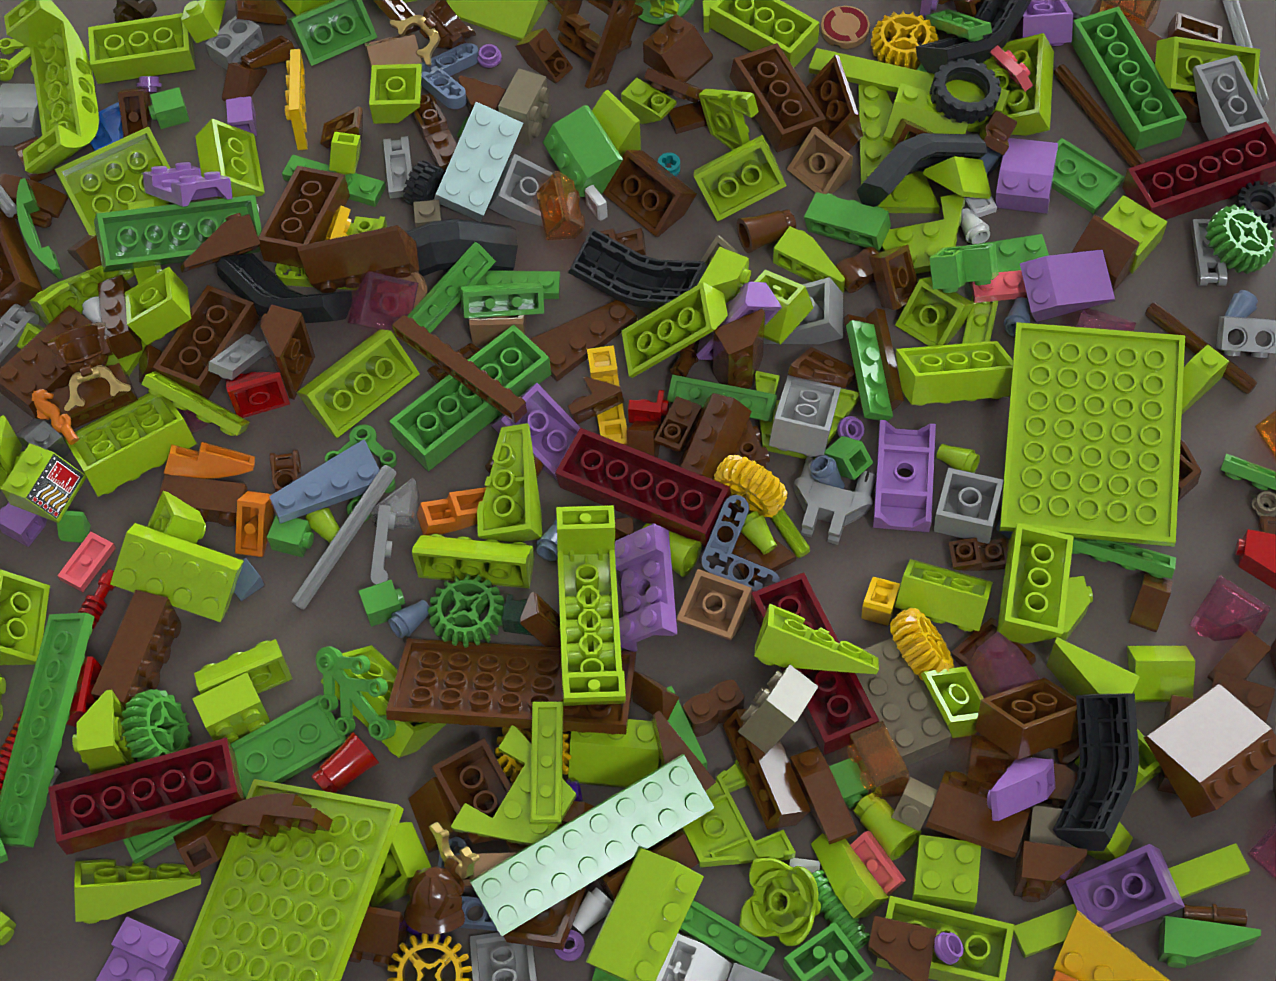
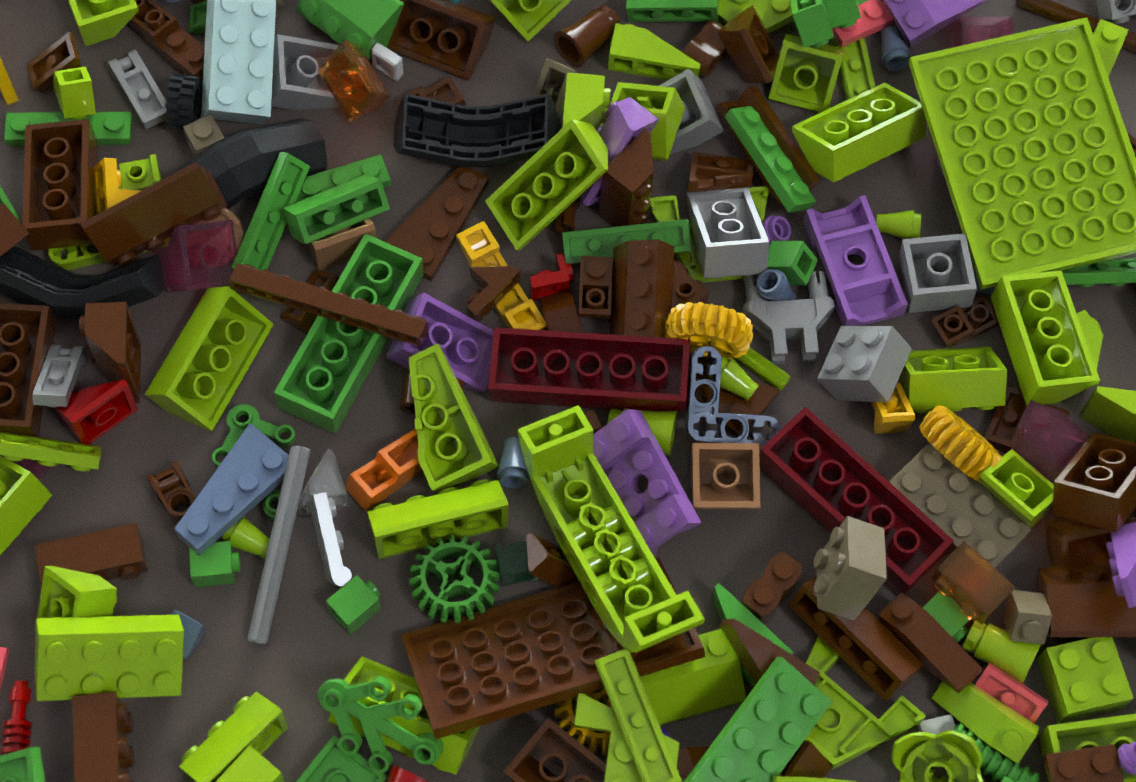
camera: 30 degrees left, 5 degrees up
(208, 462) = (76, 513): orange slope -> none
(253, 523) = (163, 564): orange slope -> none
(408, 619) = (391, 613): sand blue cone -> none
(652, 695) = (713, 602): reddish brown slope -> none
(788, 642) = (834, 491): lime wedge -> none
(871, 556) = (864, 363): none -> light grey brick

